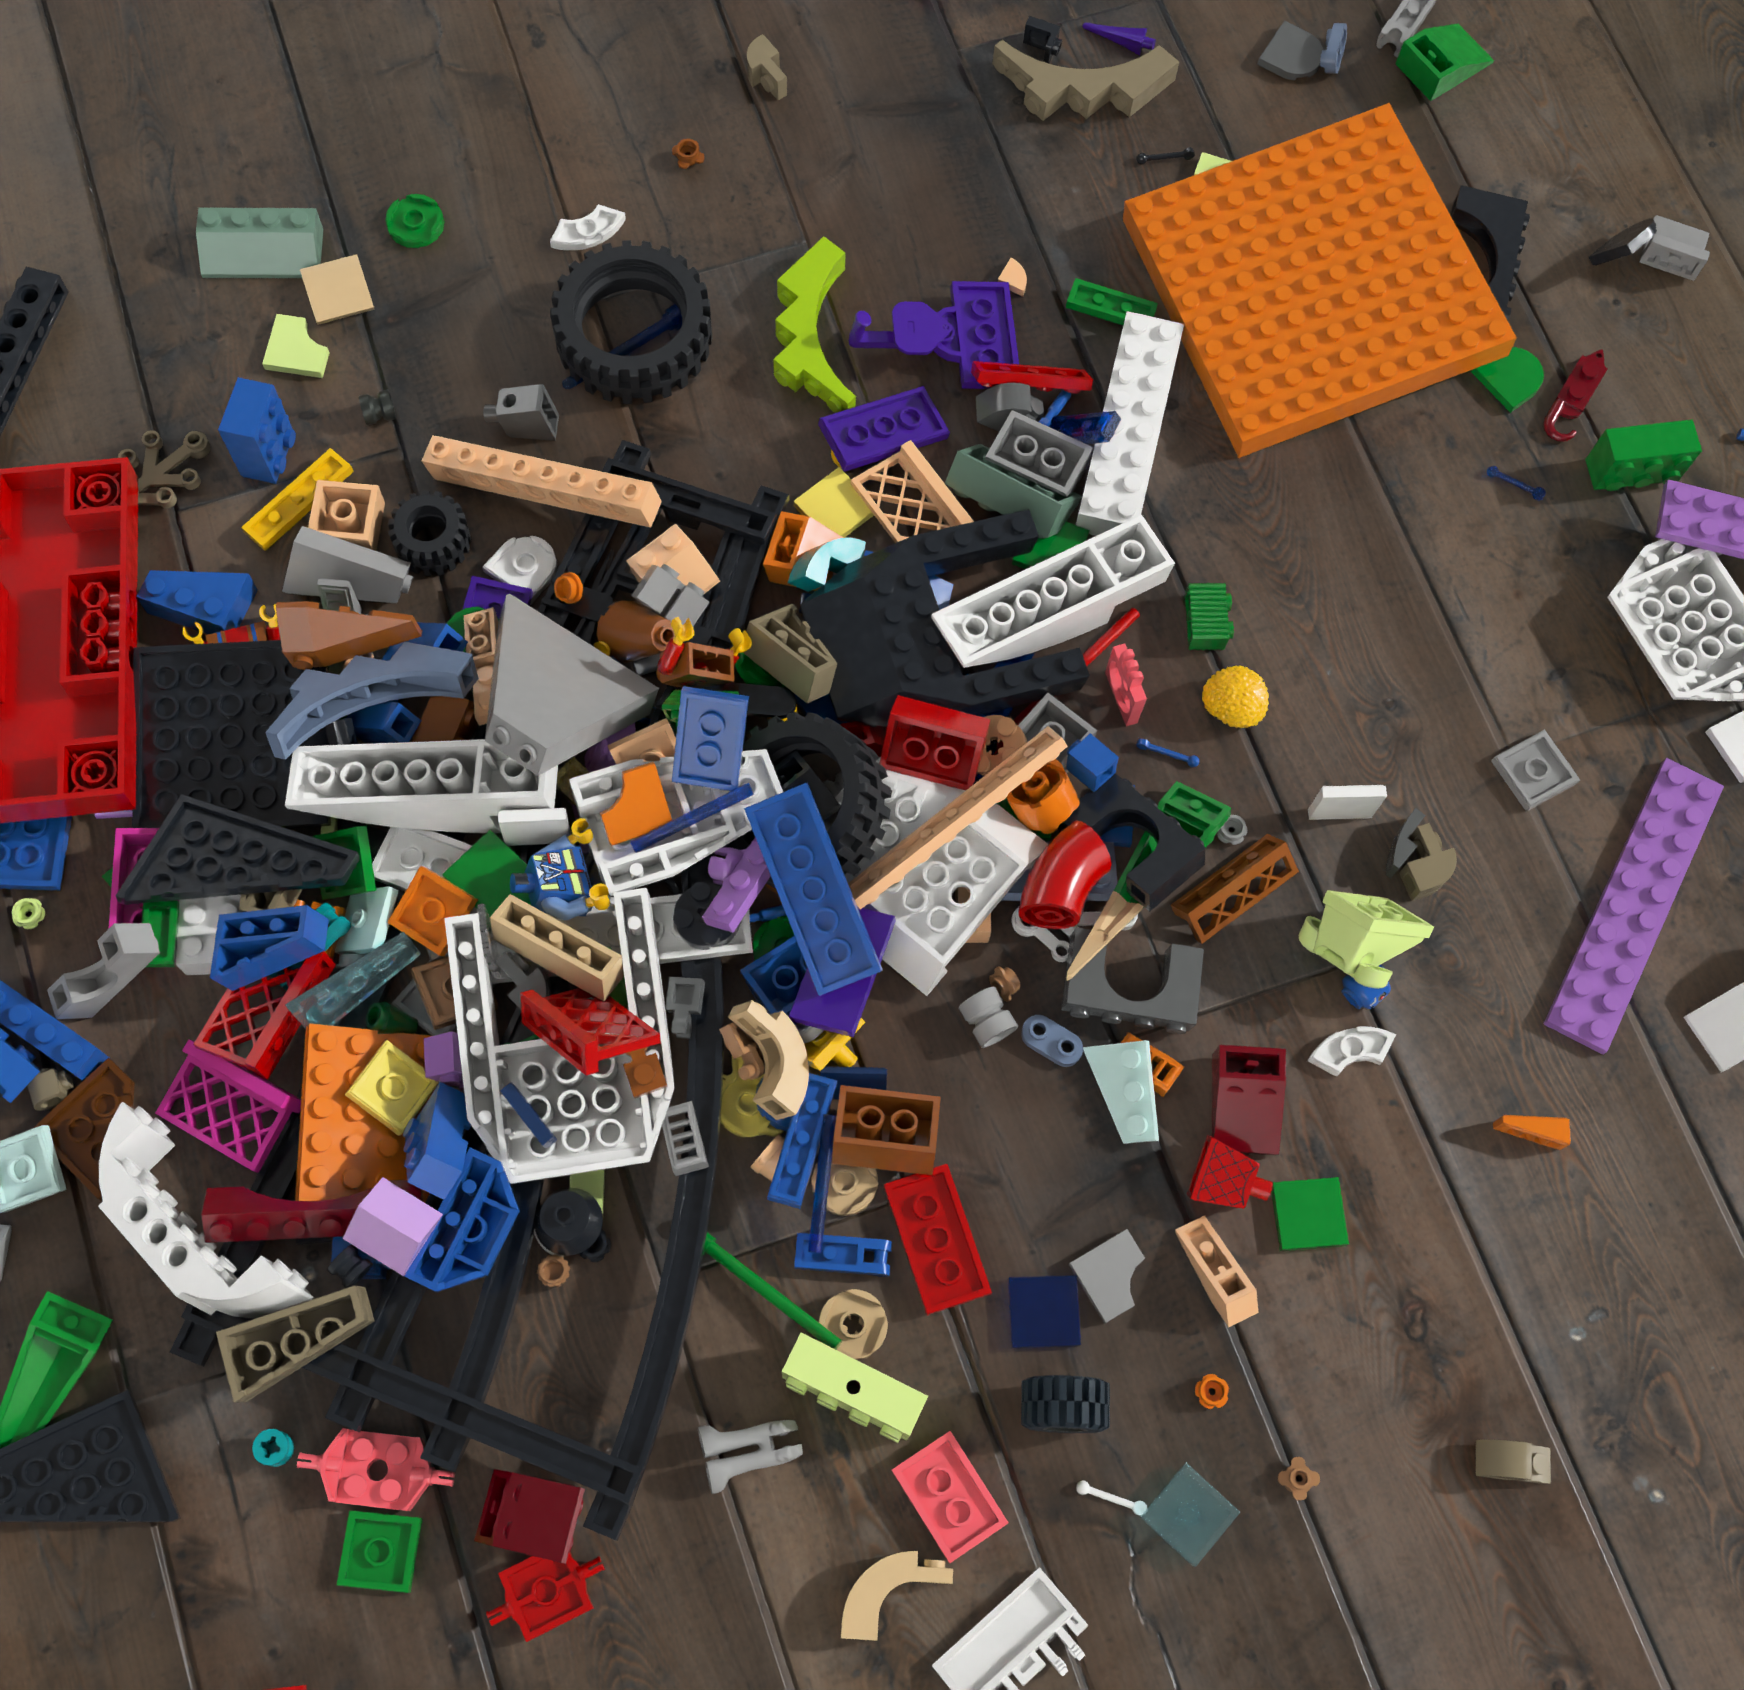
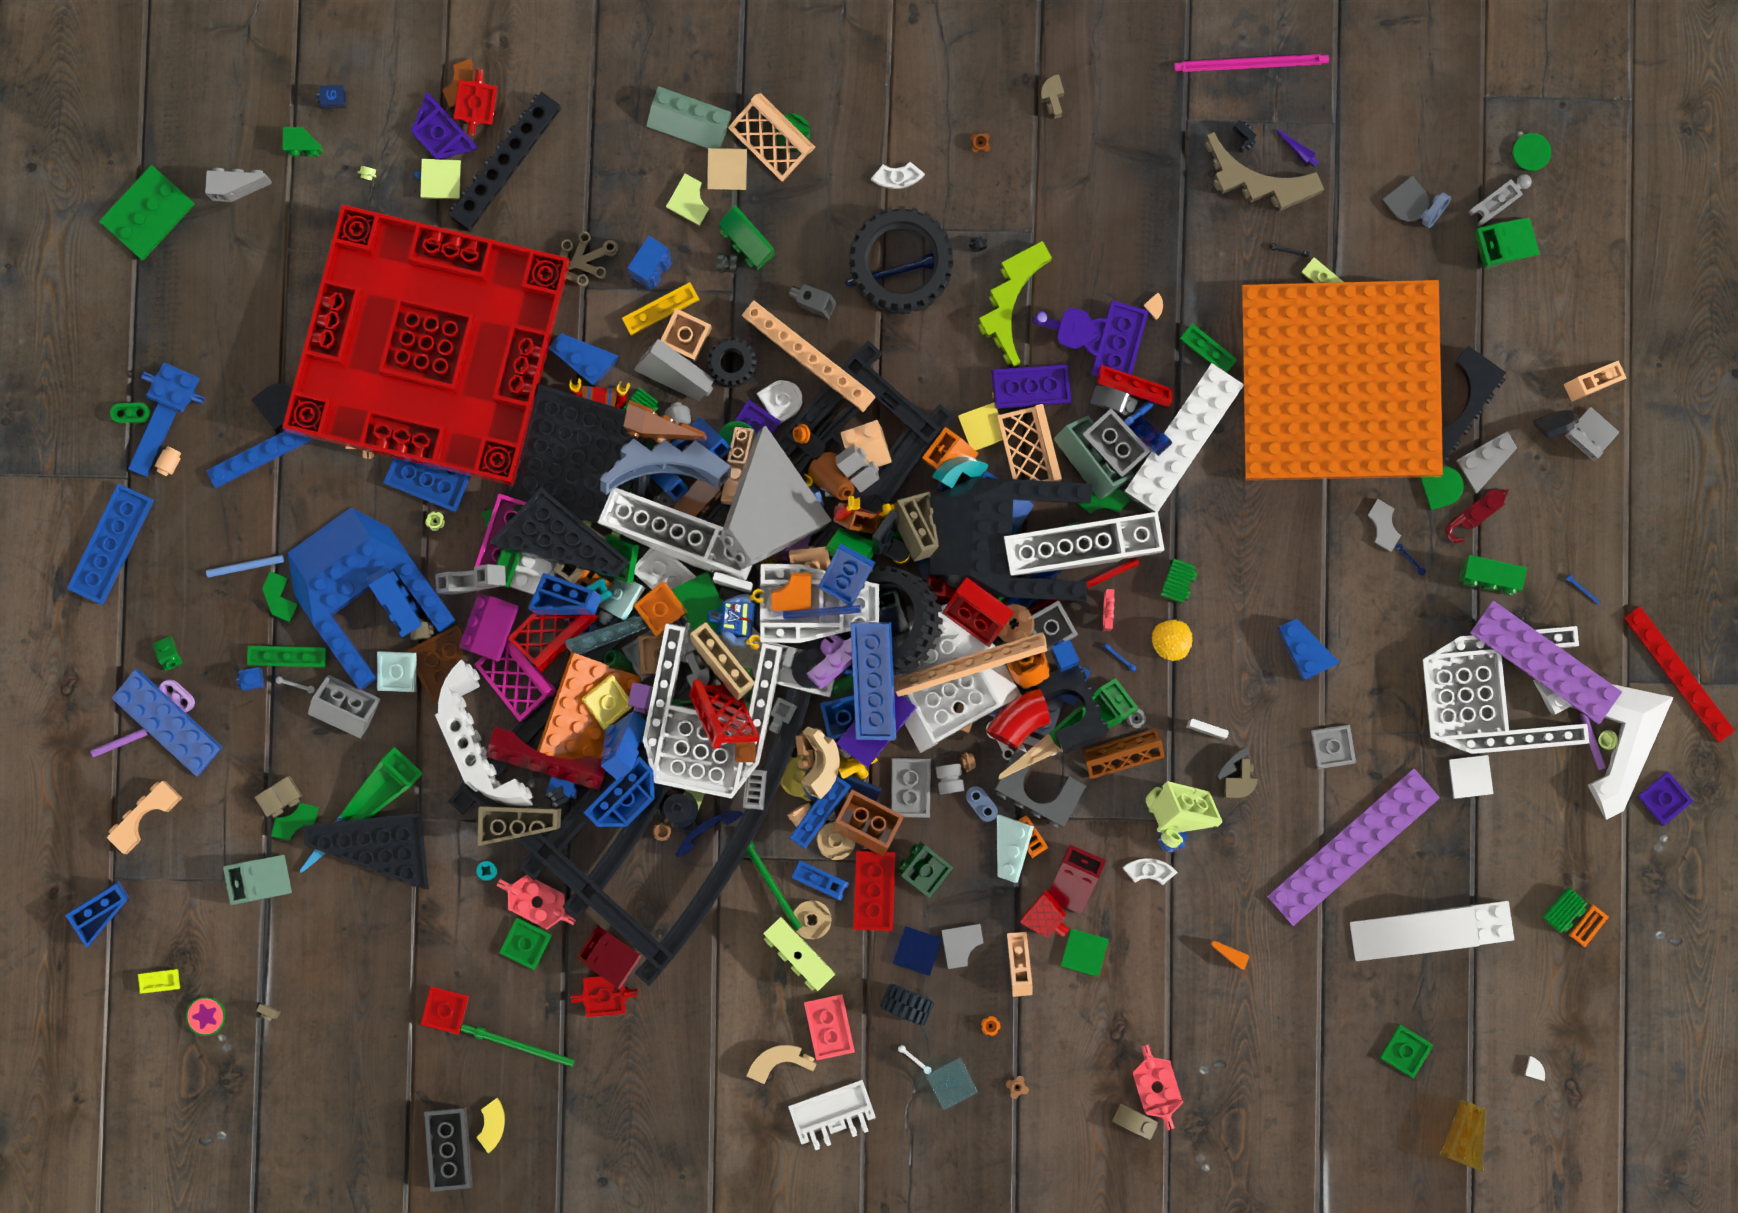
camera: 25 degrees right, 15 degrees up
(158, 1040) = (488, 626): none -> magenta slope
(336, 594) = (664, 393): light grey slope -> none
(391, 1225) = (586, 785): lavender slope -> none
(395, 361) = (746, 238): none -> green slope
(403, 210) = (778, 122): none -> light nougat fence
(528, 1115) = (676, 752): dark blue tile -> none
(602, 1277) = (687, 844): none -> clear blue slope
(664, 907) = (788, 657): none -> light grey plate
(716, 1442) = (717, 954): light grey piece -> none
(734, 275) = (978, 244): none -> black plate
(747, 669) = (882, 537): none -> black tile
(822, 1184) = (822, 839): clear blue bar -> none
(932, 1053) = (911, 787): none -> light grey tile
(1003, 1173) = (924, 869): none -> dark green plate
(1432, 646) = (1305, 650): none -> blue wedge
(1450, 441) = (1385, 532): none -> light grey tile
(1547, 1404) = (1168, 1099): none -> coral plate
(1553, 325) = (1486, 460): none -> light grey wing
(1642, 183) = (1594, 381): none -> light nougat slope

